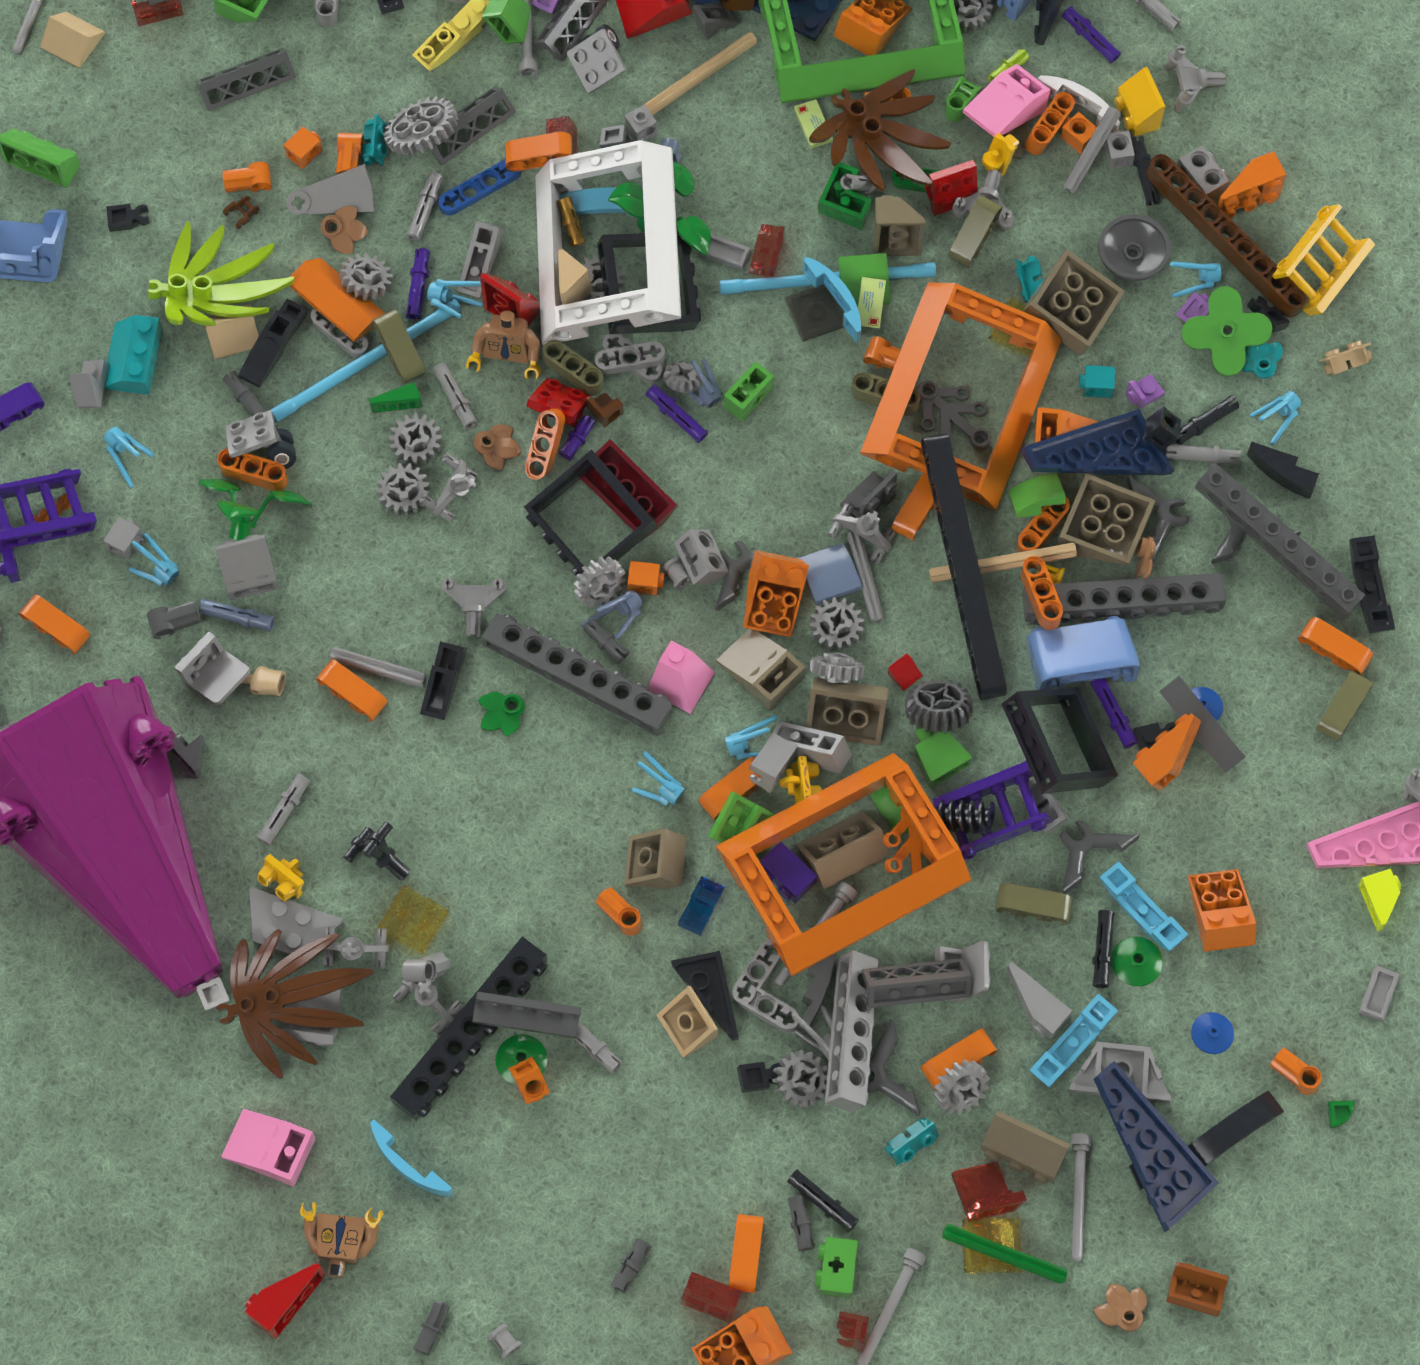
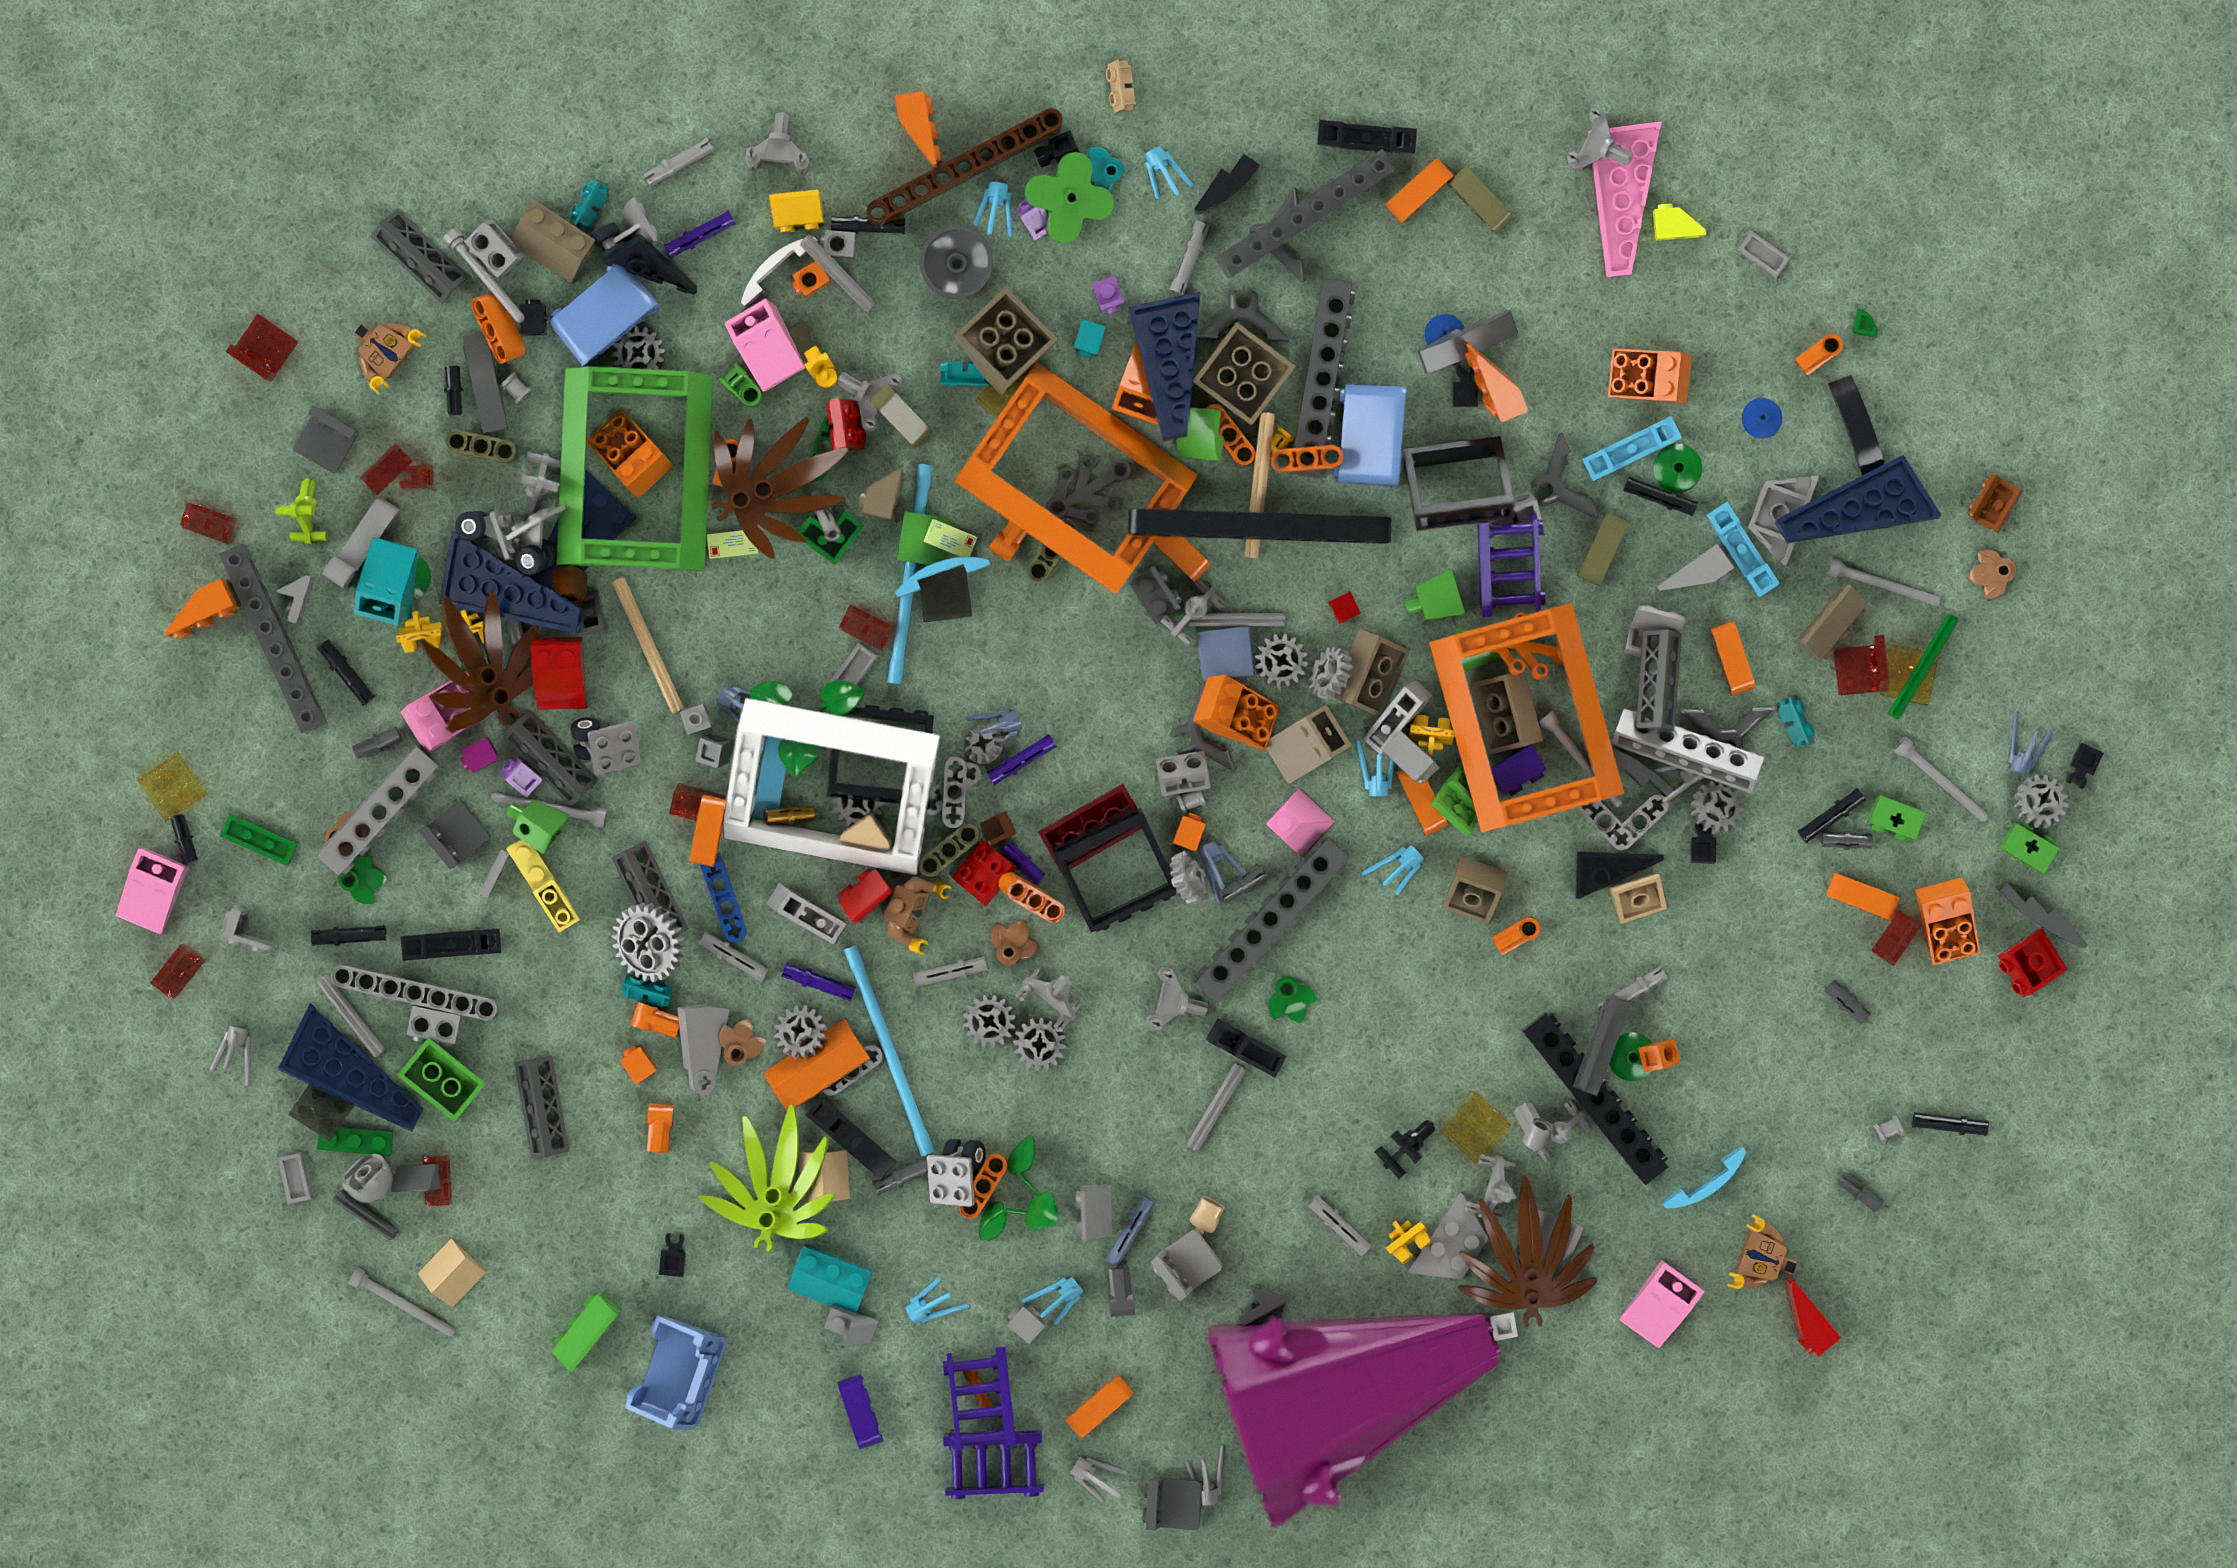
camera: 80 degrees left, 20 degrees up
(244, 201) = (682, 1134): reddish brown piece -> none
(352, 689) = (1236, 1137): orange beam -> none
(397, 399) = (941, 1022): green slope -> none
(398, 346) = (888, 1016): olive beam -> none
(440, 293) = (836, 961): medium azure plant -> none
(701, 906) = (1527, 857): clear blue slope -> none
(748, 391) = (1019, 684): bright green brick -> none
(853, 1328) = (1958, 818): clear red hinge -> none
(938, 706) = (1404, 582): dark grey gear -> none
(961, 1087) = (1763, 664): light grey gear -> none
(967, 818) = (1515, 592): black piece -> none
(1018, 57) = (716, 329): lime axle -> none
(1043, 130) = (789, 296): orange beam -> none
(1118, 720) = (1462, 415): dark purple pin -> none
(1145, 550) = (1288, 346): medium nougat plate -> none
(1162, 428) = (1158, 291): black brick -> none
(1197, 424) = (1154, 244): black pin -> none
(1208, 172) = (890, 174): light grey brick -> none
(1344, 266) = (1032, 65): yellow fence -> none

